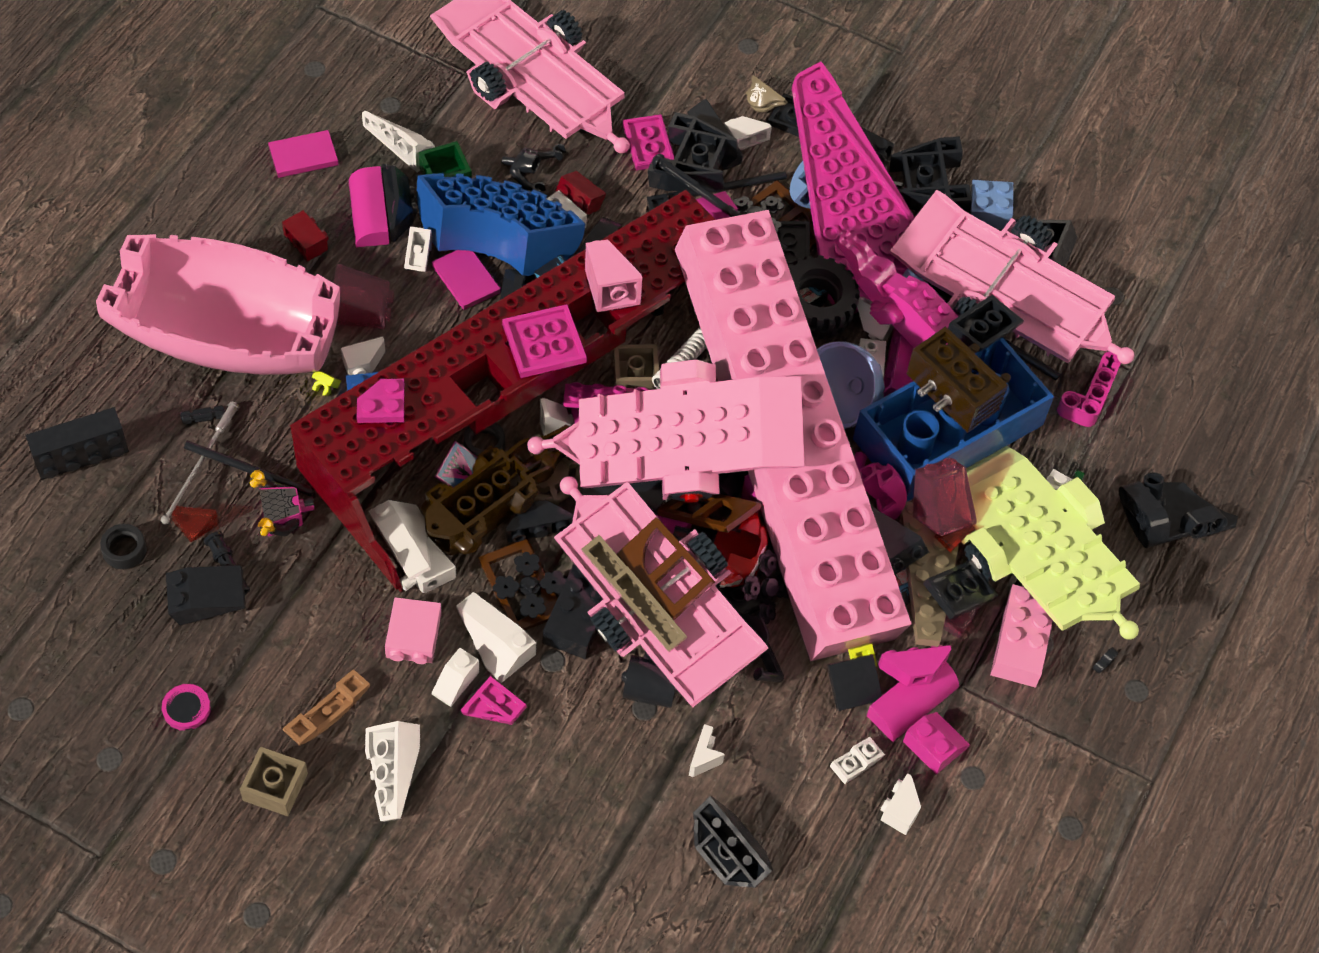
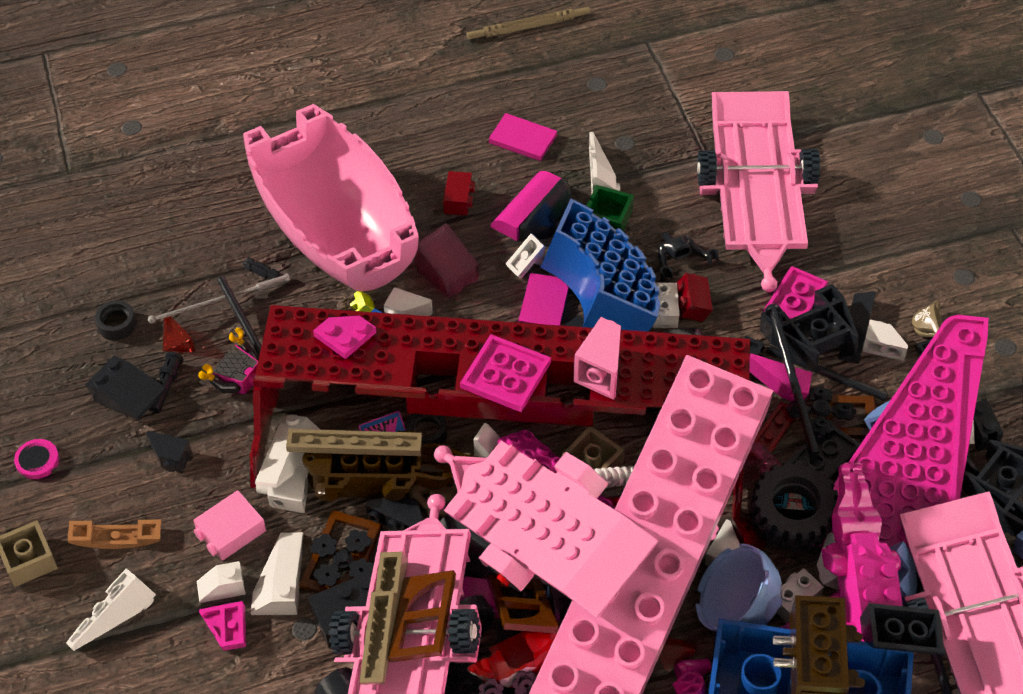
camera: 50 degrees right, 5 degrees down
(77, 443) = (157, 229): black brick -> none
(201, 52) = (527, 23): none -> dark tan axle
(295, 614) = (170, 451): none -> black slope
(459, 487) = (354, 442): none -> dark tan plate

